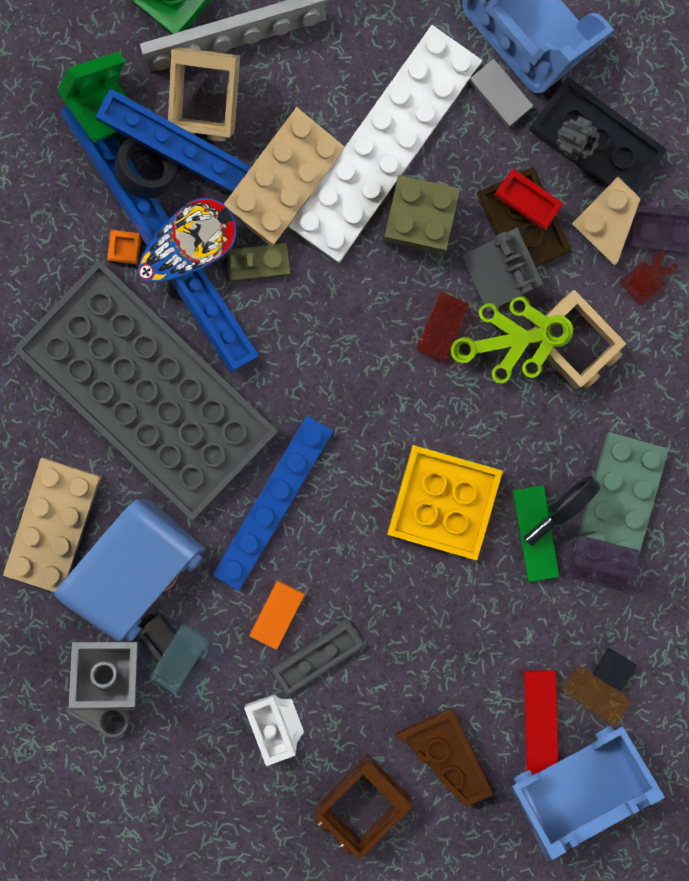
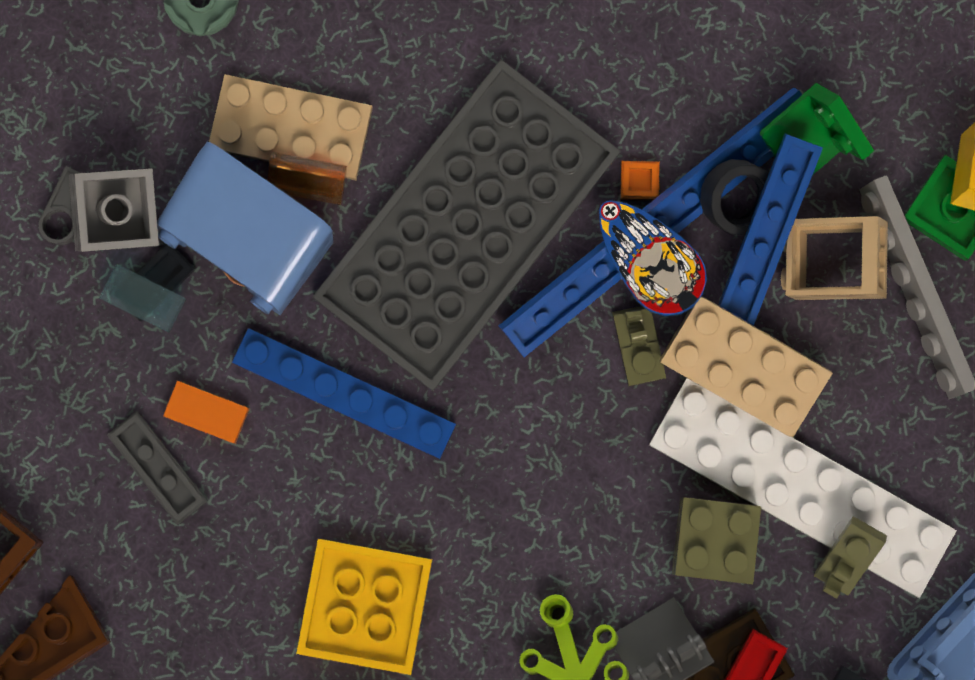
camera: 90 degrees right, 5 degrees down
(94, 515) = (307, 178): none -> clear orange tile
(275, 727) = (67, 423): white slope -> none
(442, 326) = (582, 581): clear red plate -> none
(445, 110) = (850, 557): none -> olive plate
(500, 93) = (882, 625): light grey tile -> none

